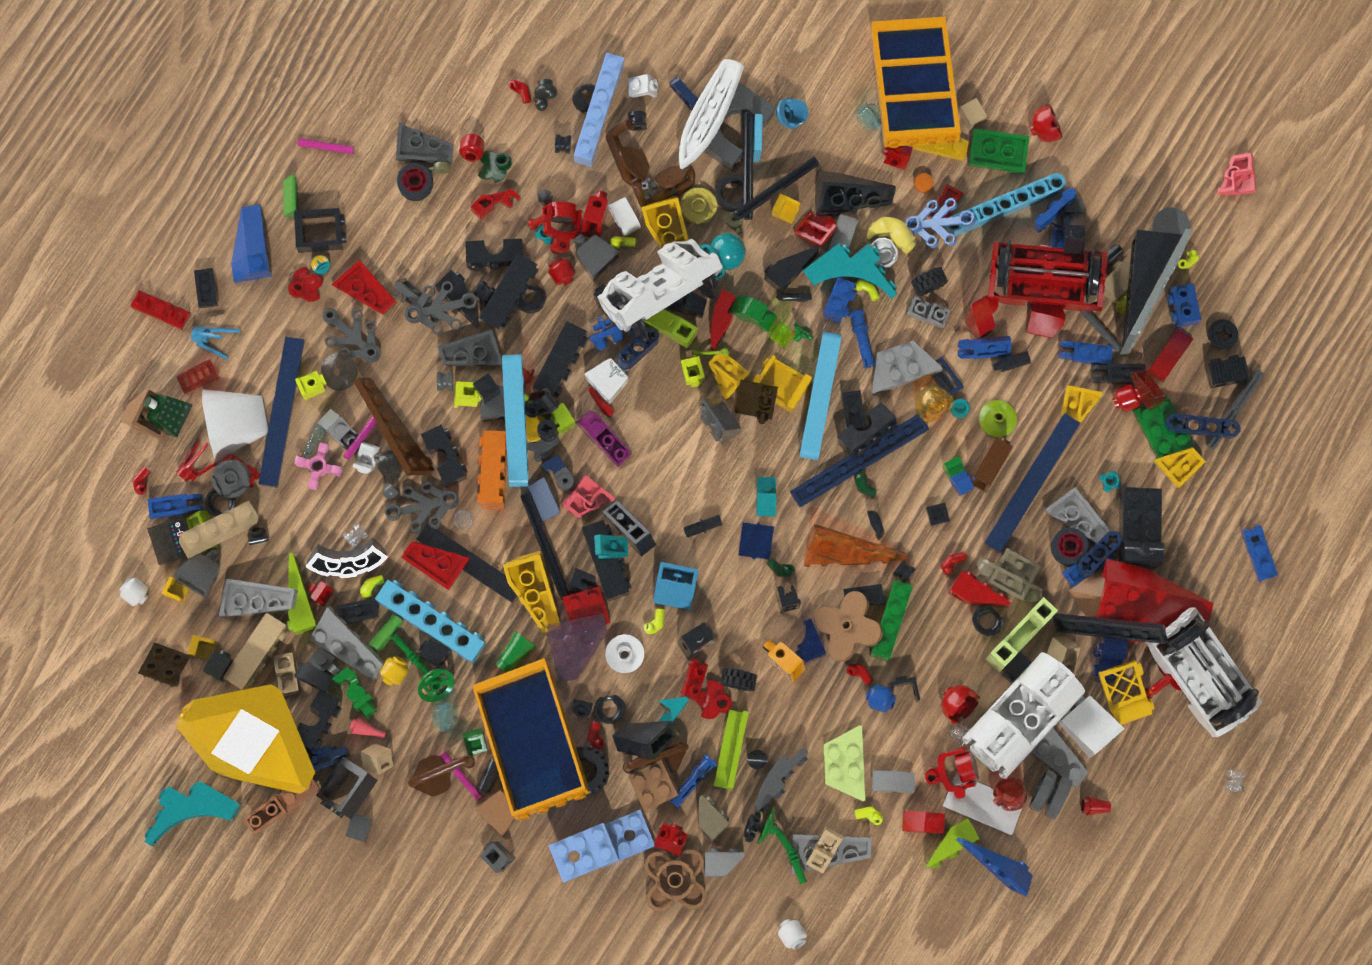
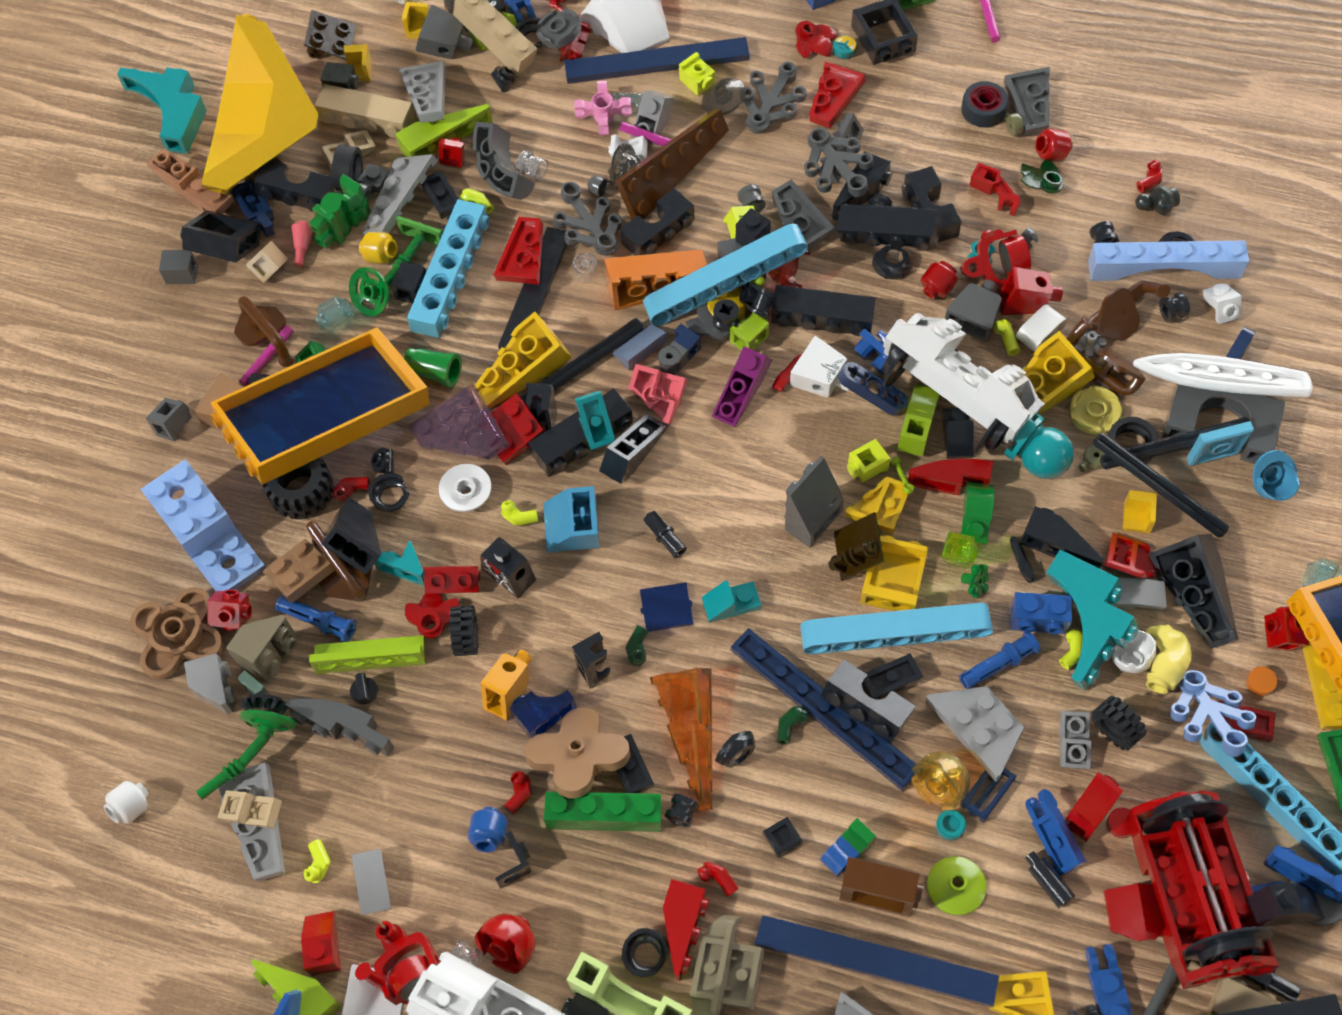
camera: 80 degrees right, 15 degrees down
(733, 833) = (251, 684): none -> sand green tile
(845, 764) = (384, 810): yellowish green wing -> none

